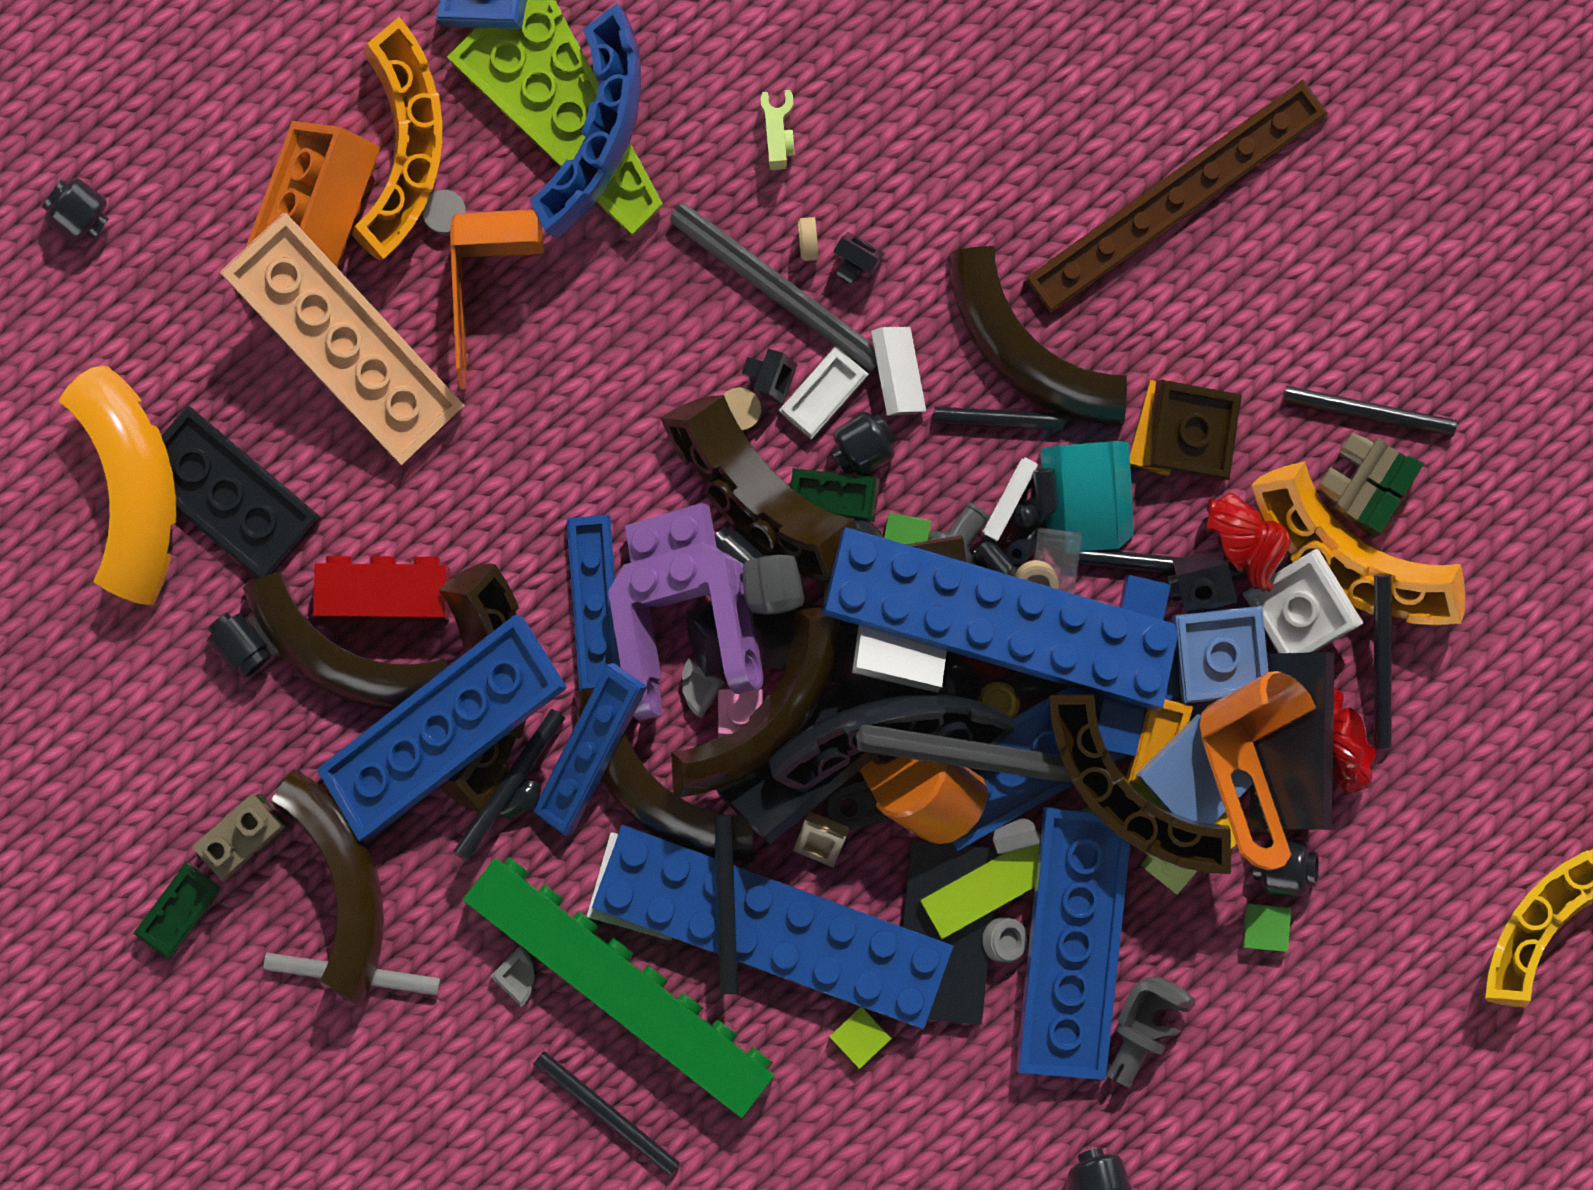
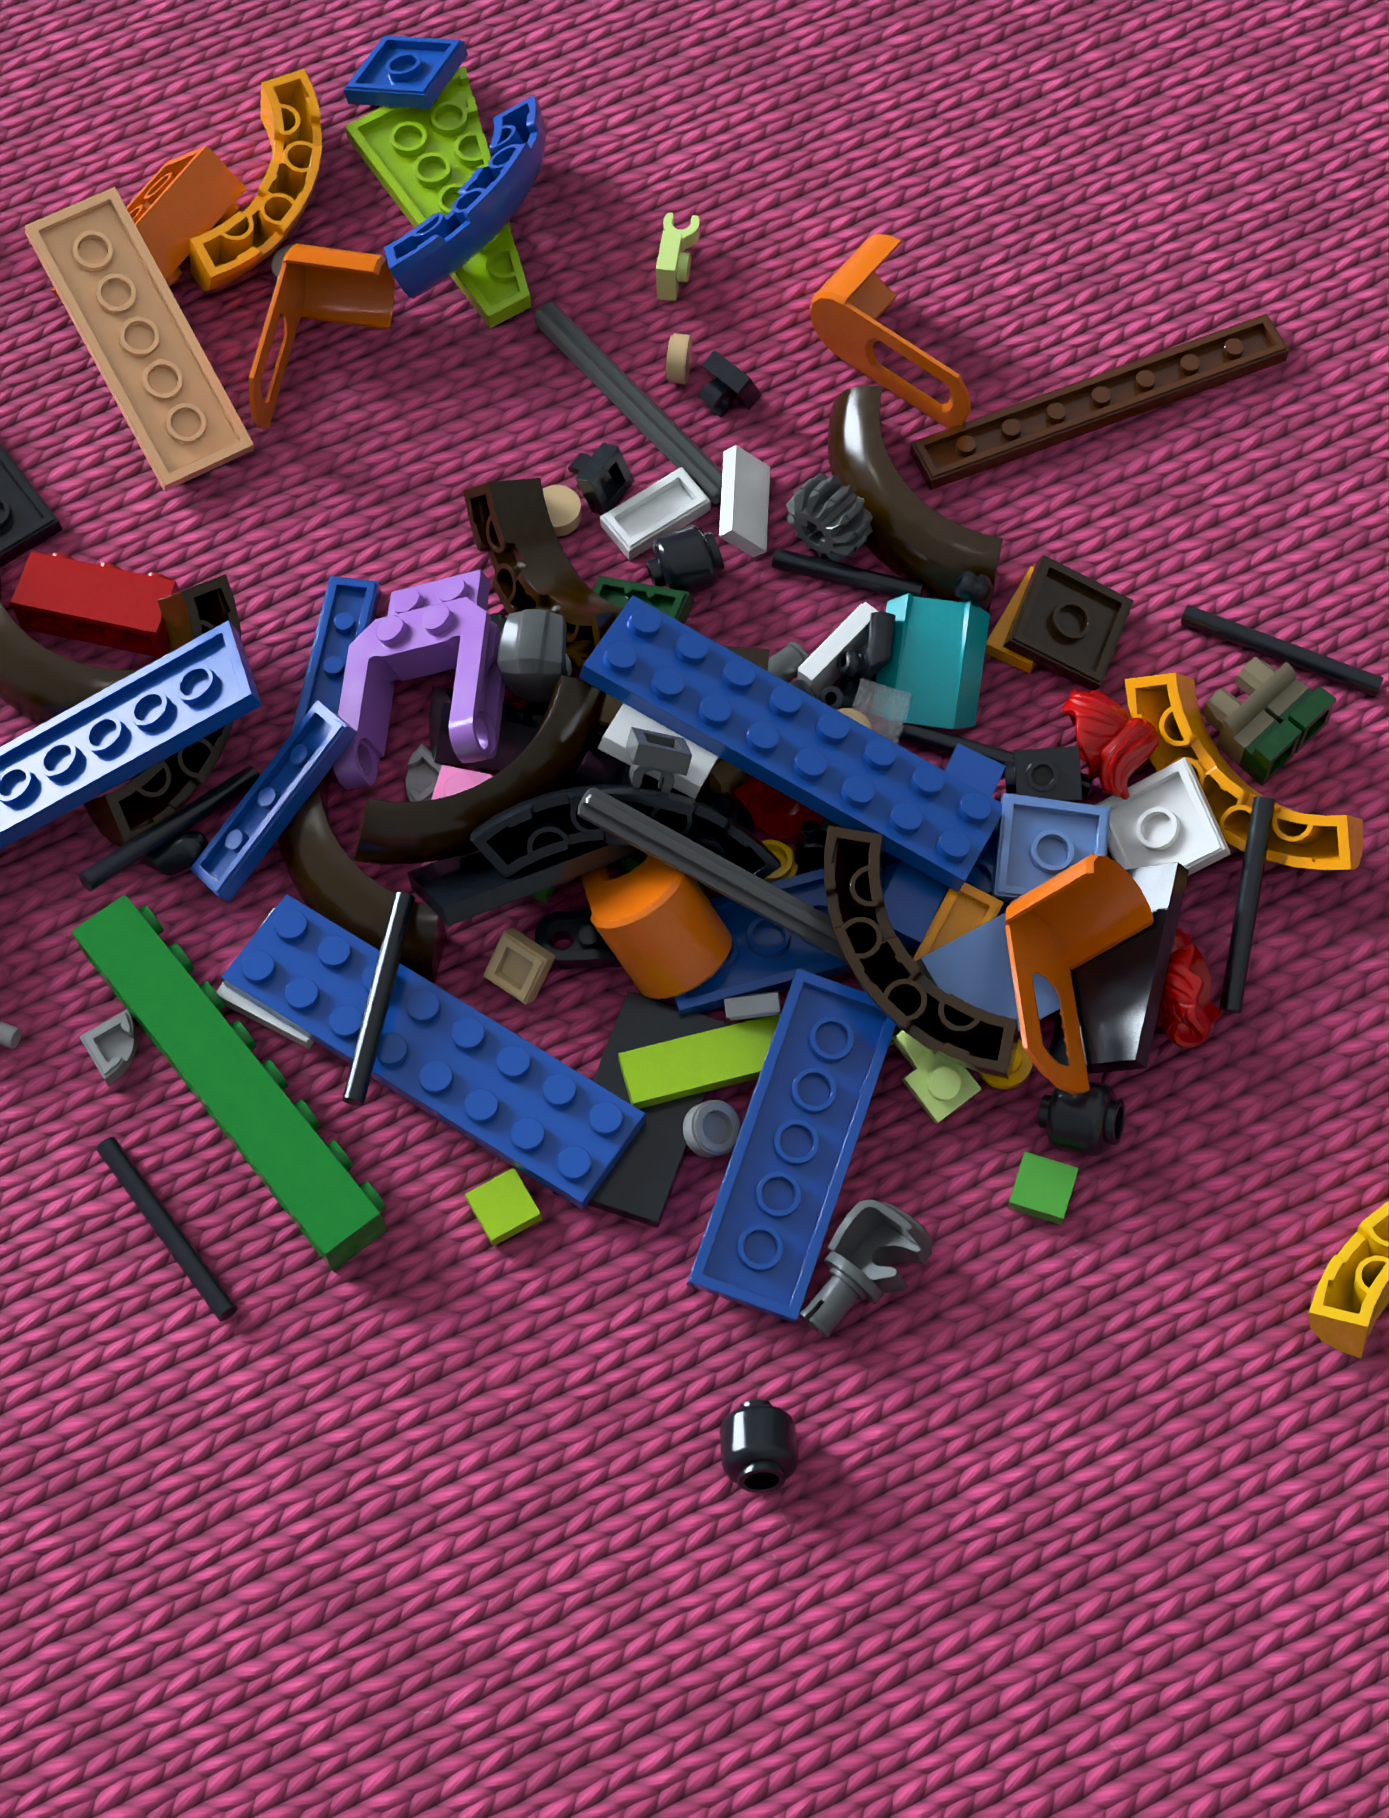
camera: 15 degrees right, 20 degrees down
(905, 677) = (657, 752): none -> dark grey tile
(941, 160) = (846, 322): none -> orange piece
(976, 378) = (829, 517): none -> dark grey gear
(1111, 428) = (974, 589): none -> black arm

